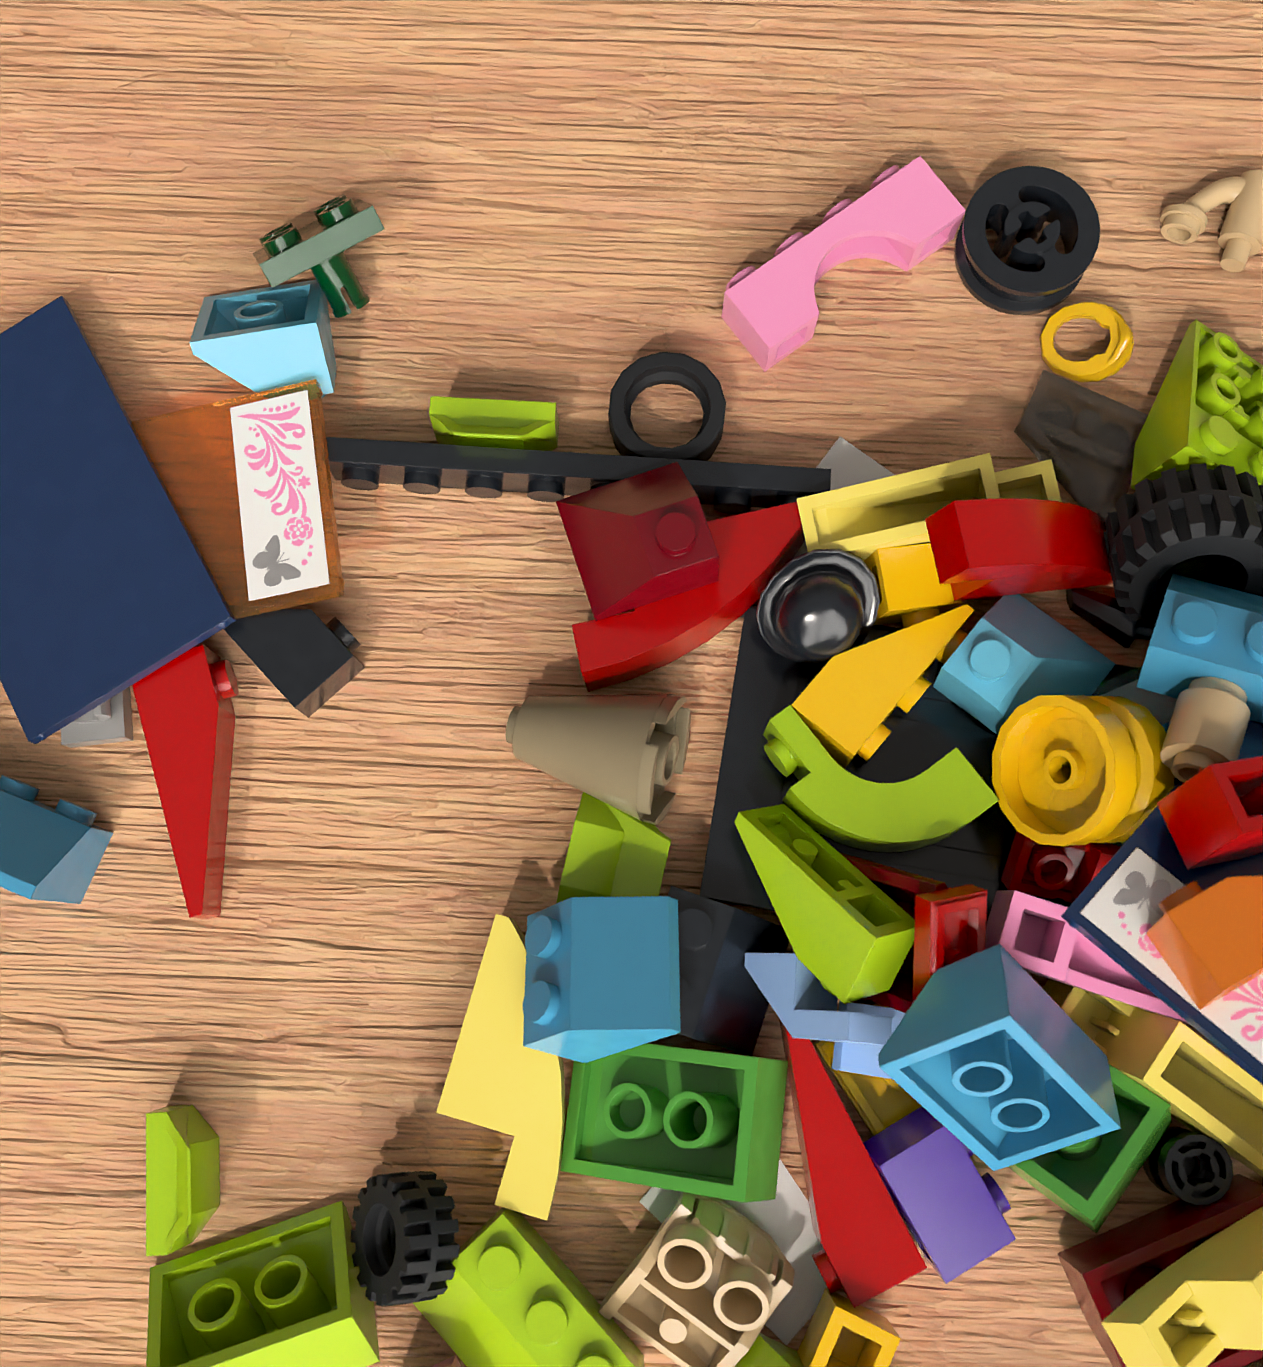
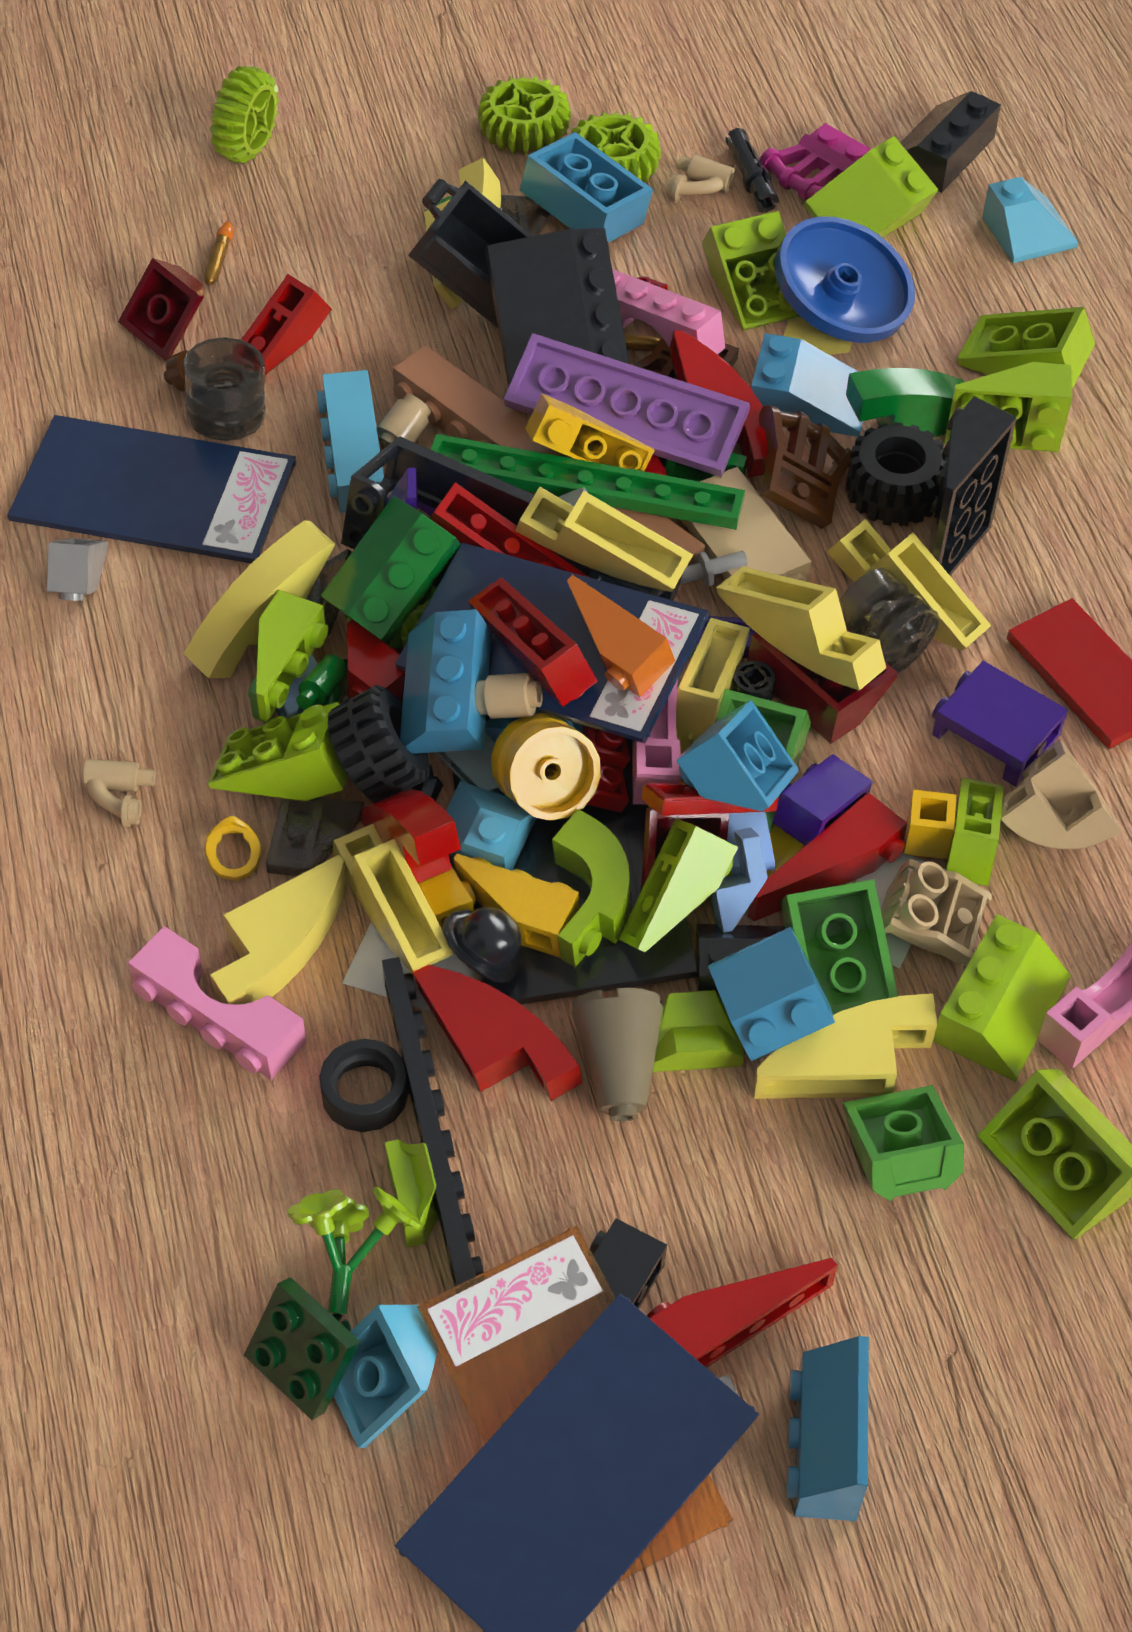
camera: 110 degrees left, 25 degrees down
(179, 1177) = (1009, 1223): lime slope -> none
(359, 1089) = (905, 1141): none -> bright green slope
(404, 1237) = (963, 1054): black tyre -> none
(452, 276) = (337, 1216): none -> lime plant
(639, 540) = (473, 1049): dark red slope -> none
(921, 360) = (279, 933): none -> light yellow slope
(1016, 208) = (180, 875): black wheel -> none

